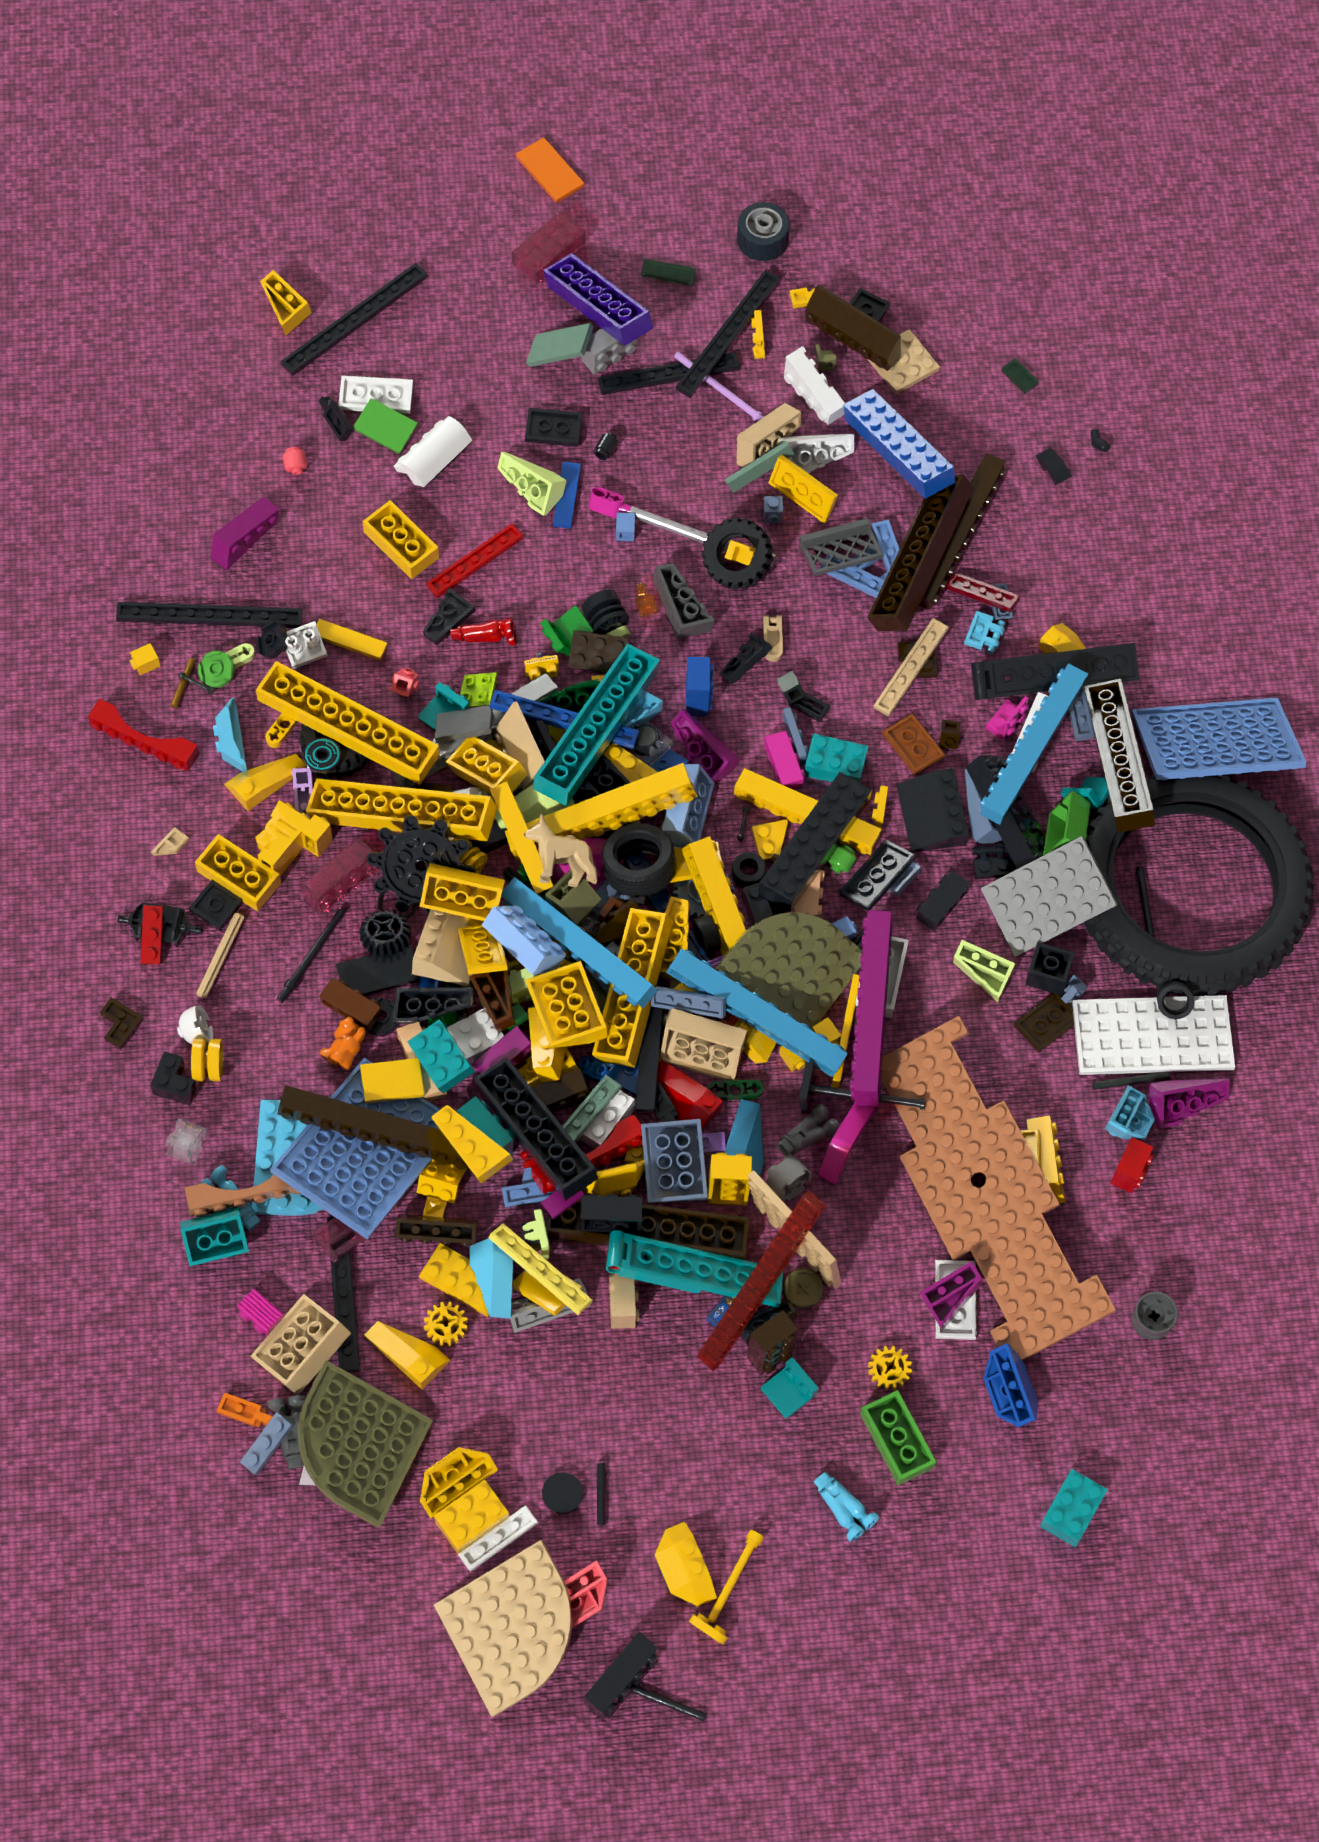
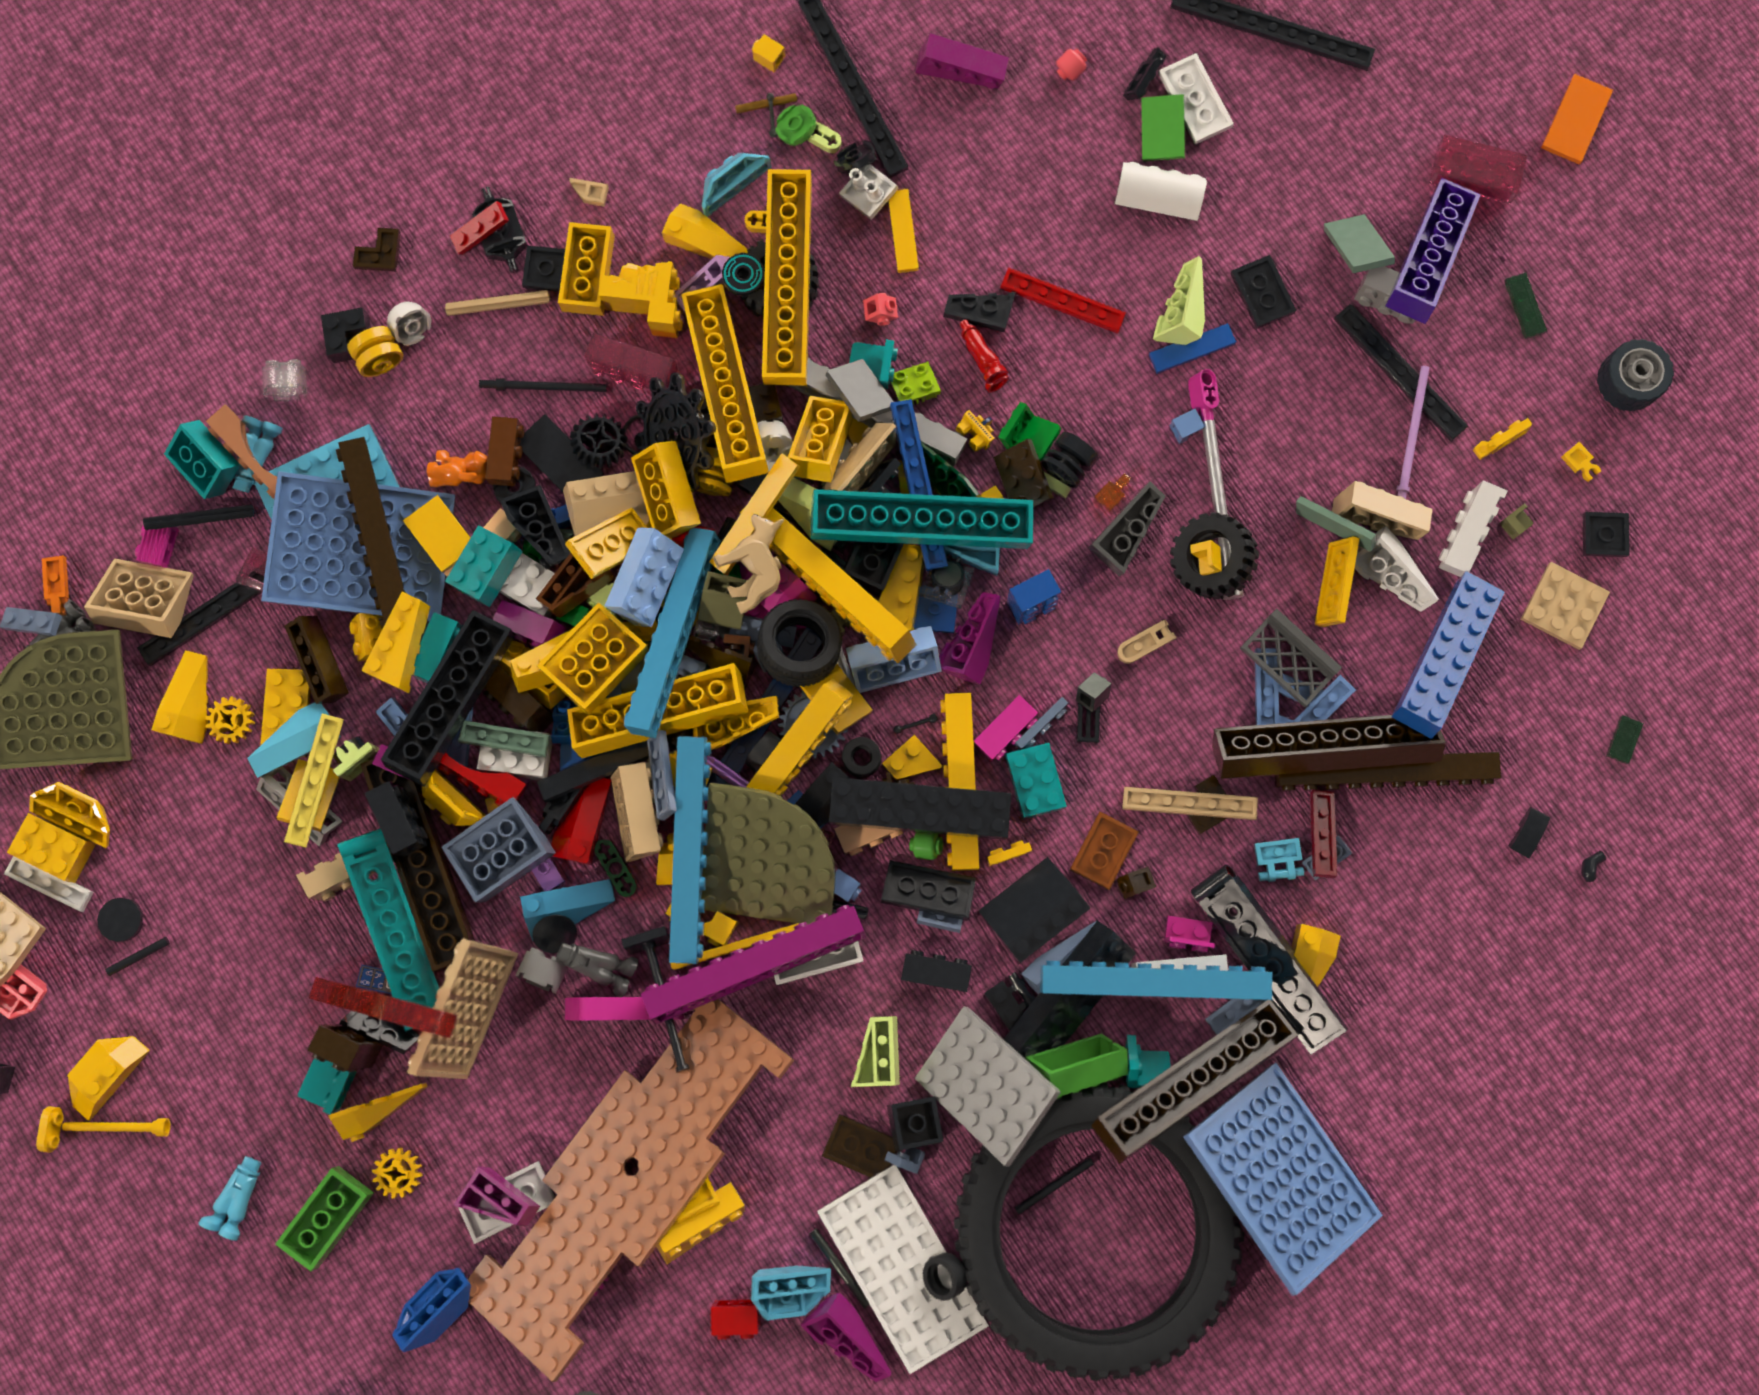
camera: 70 degrees right, 15 degrees up
(176, 750) = (686, 60): red arch -> none
(260, 1264) = (198, 517): none -> black axle
(400, 539) = (1039, 215): yellow brick -> none
(434, 1207) = (342, 645): yellow tile -> none
(606, 446) = (1271, 356): black brick -> none
(727, 334) = (1483, 406): black plate -> none
(729, 1179) = (496, 915): yellow brick -> none
(749, 655) = (1106, 630): black wing -> none
(763, 1155) = (553, 931): none -> black piece
(772, 509) = (1295, 564): sand blue brick -> none
(832, 1371) = (363, 1118): none -> yellow wedge
(853, 328) = (1567, 533): dark brown slope -> none

